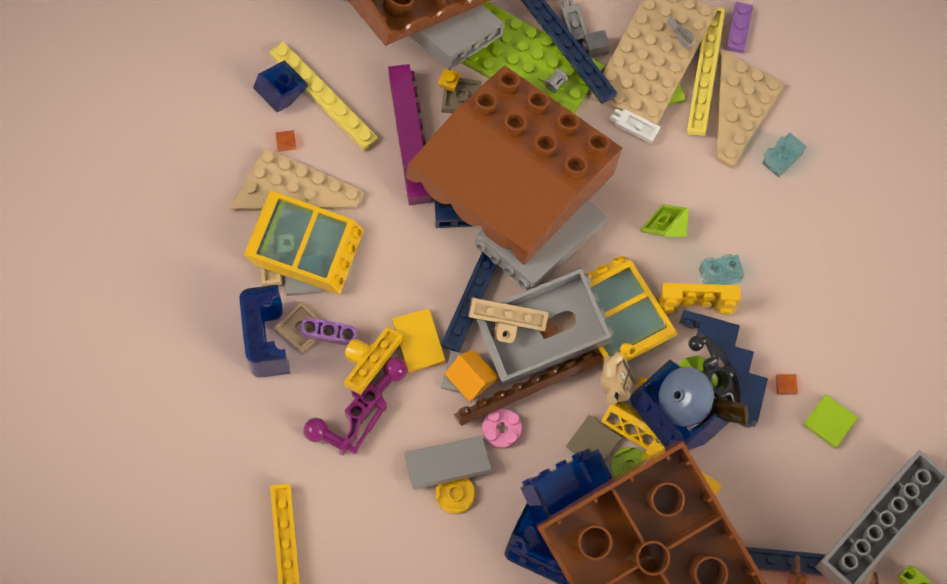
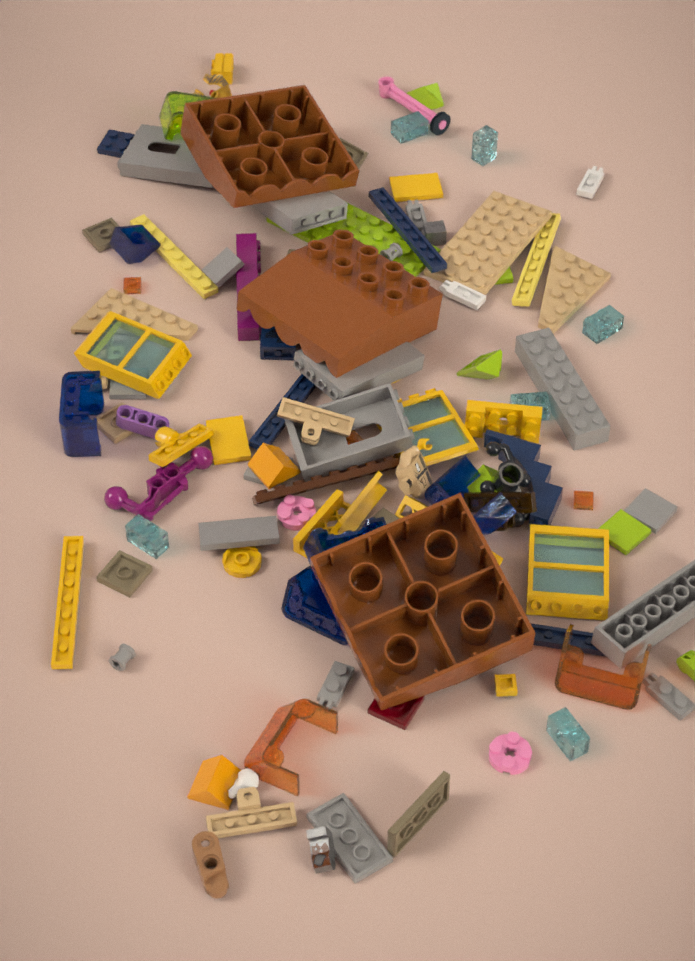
camera: 10 degrees right, 20 degrees down
(243, 71) = (100, 234): none -> dark tan tile
(339, 522) = (124, 573): none -> dark tan tile
(355, 477) = (147, 536): none -> clear light blue brick
(380, 113) = (223, 267): none -> light grey tile
(449, 80) = (290, 246): yellow plate -> none
(526, 440) = (326, 513): none -> yellow fence
(565, 420) = (360, 507): none -> yellow fence
(677, 29) = (512, 222): light grey piece -> none
(695, 397) = (479, 485): sand blue dish -> none
(739, 27) = (573, 231): medium lavender plate -> none
(750, 239) = (568, 396): none -> light grey brick
(782, 478) = (568, 572): none -> window
(854, 391) = (651, 510): none -> light grey tile

